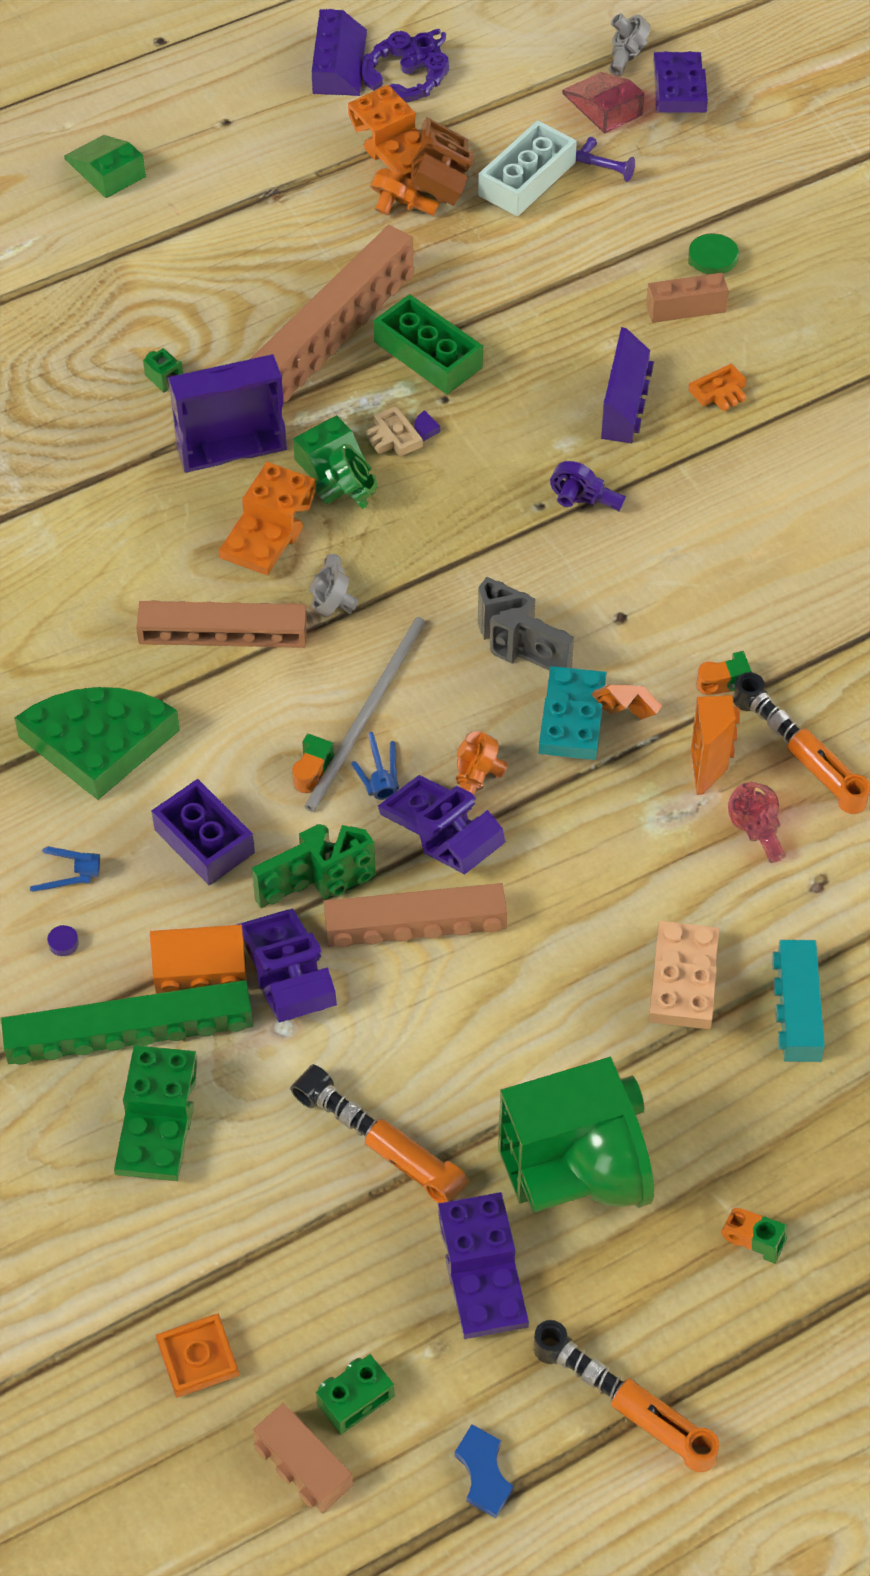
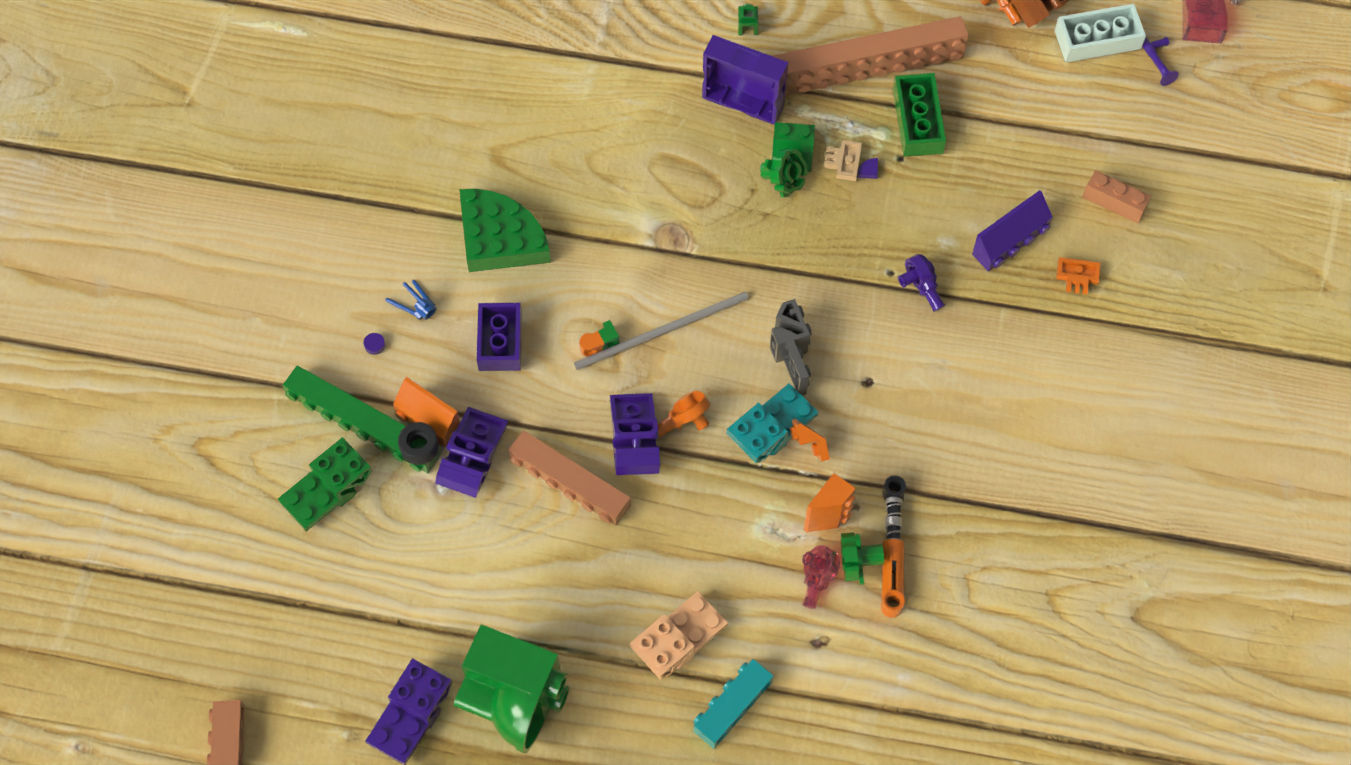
camera: 40 degrees right, 10 degrees up
(197, 1355) = (229, 636): orange plate -> none
(222, 624) = (630, 213): nougat brick -> none
(226, 974) = (414, 431): none -> black tyre
(268, 518) = (715, 165): orange piece -> none
(317, 861) = (546, 406): green piece -> none
(330, 588) = (708, 234): light grey pin -> none
(354, 1393) = (284, 725): green brick -> none
(382, 783) = (626, 382): blue plant -> none
(440, 1179) = (430, 594): piece -> none
(680, 82) = (1262, 38): dark purple piece -> none
(713, 253) = (1166, 177): green tile -> none
(721, 676) = (886, 466): orange leg -> none
(782, 770) = (856, 556): none -> green piece

